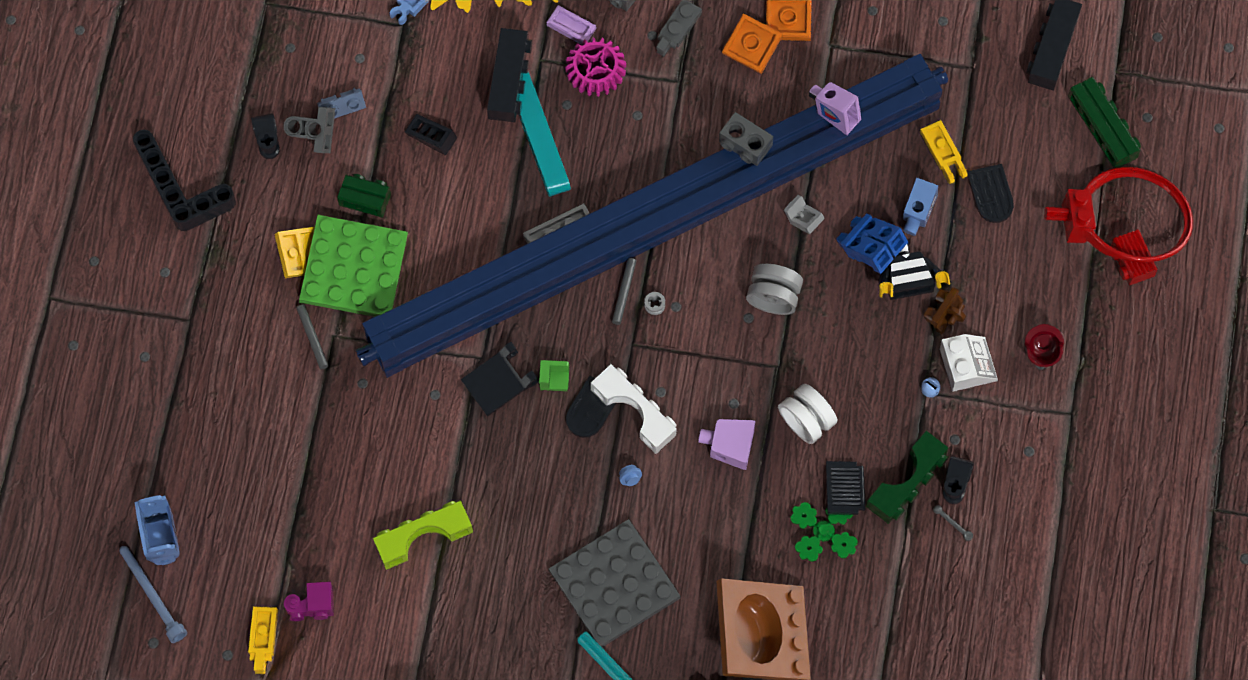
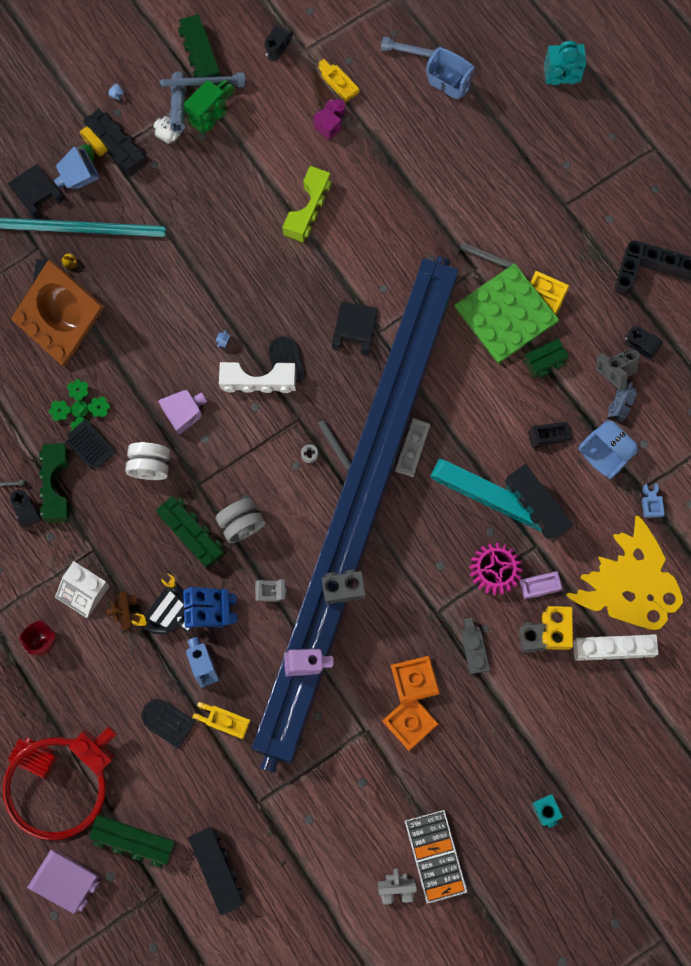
camera: 135 degrees right, 5 degrees up
(42, 440) = (565, 57): none -> teal brick
(397, 73) = (608, 449): none -> medium blue piece
(554, 375) = (325, 356): bright green panel -> none
(614, 583) = (174, 275): dark grey plate -> none
(826, 325) = (191, 534): none -> dark green brick
(928, 390) = (93, 558): light blue hinge -> none
(1188, 138) = (64, 881): none -> lavender slope

